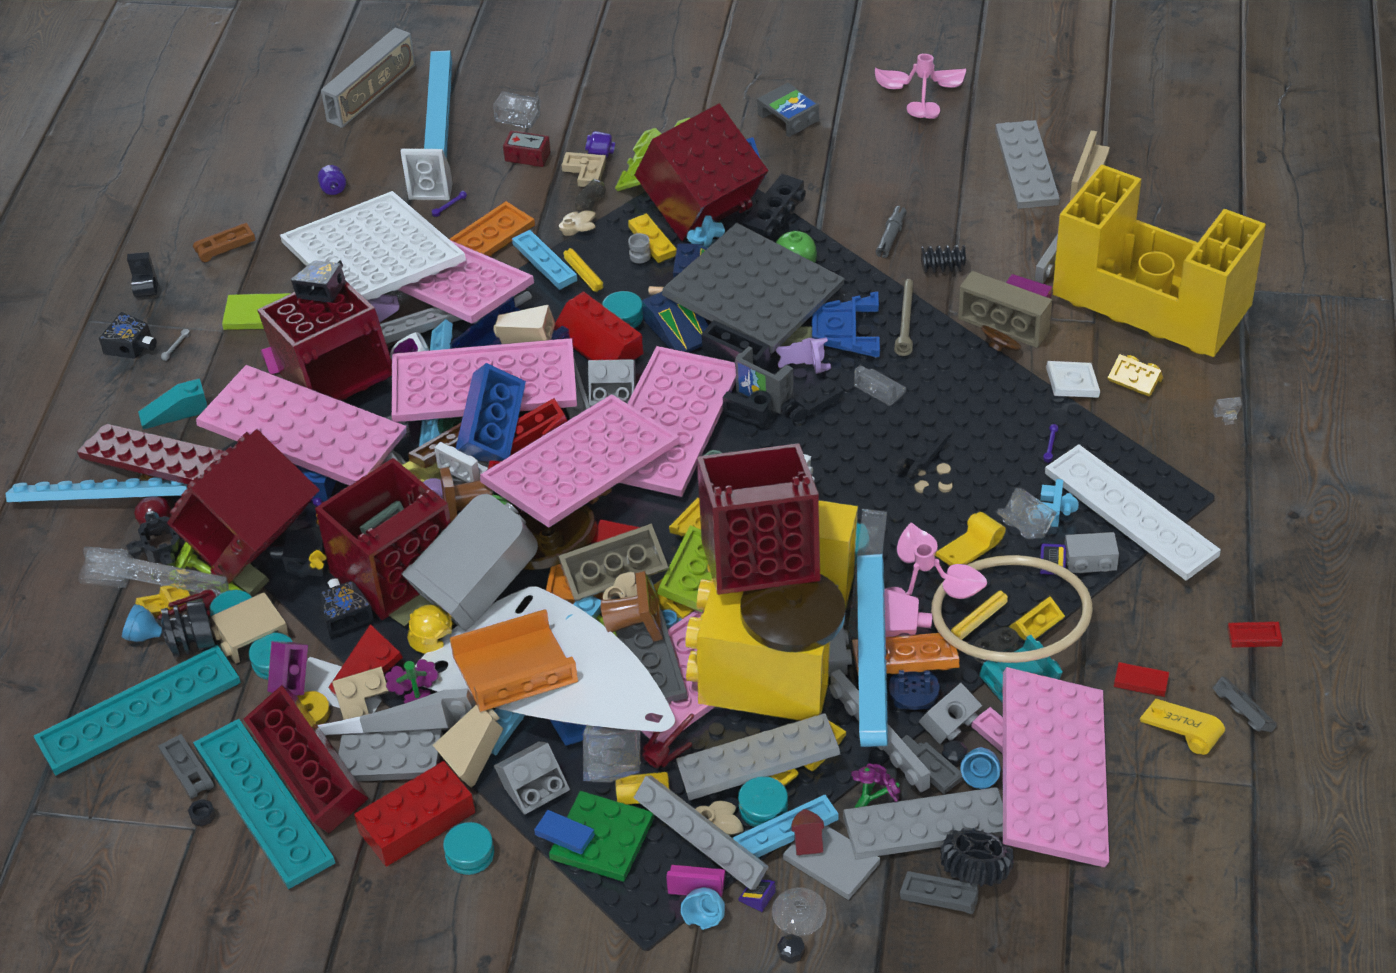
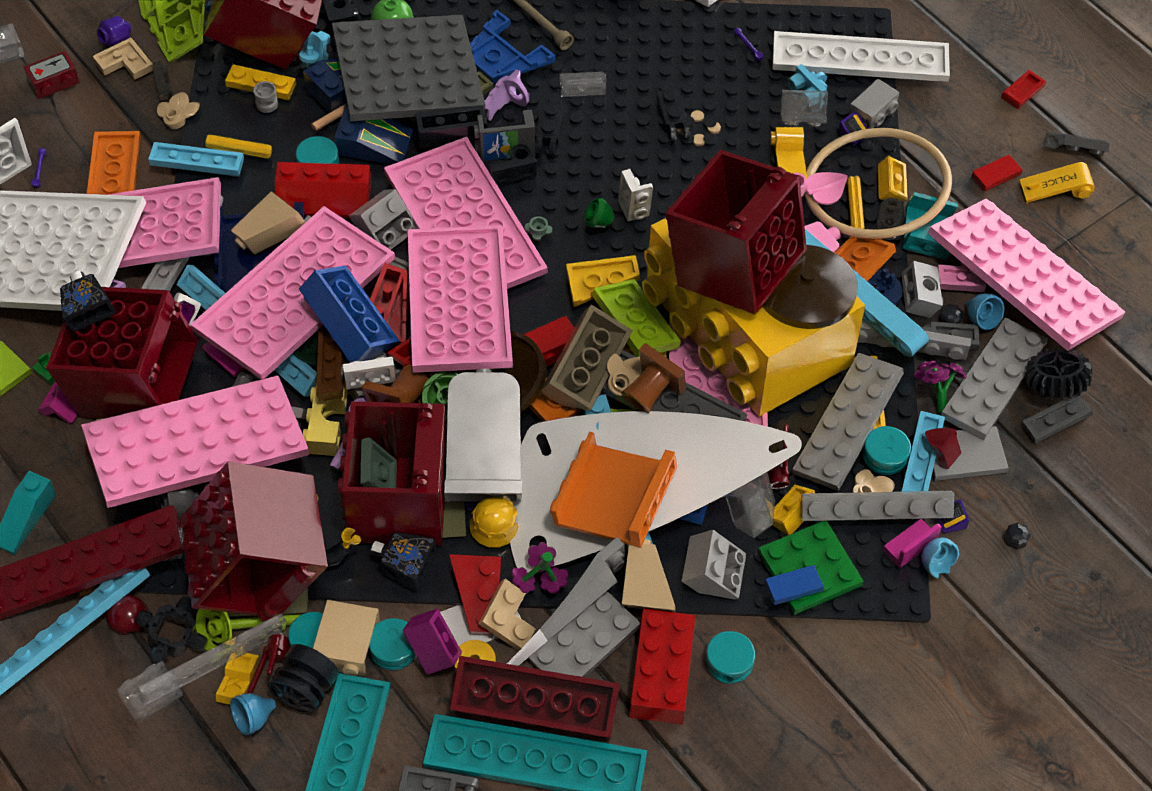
camera: 50 degrees left, 10 degrees up
(799, 920) = (985, 515): clear dish -> none

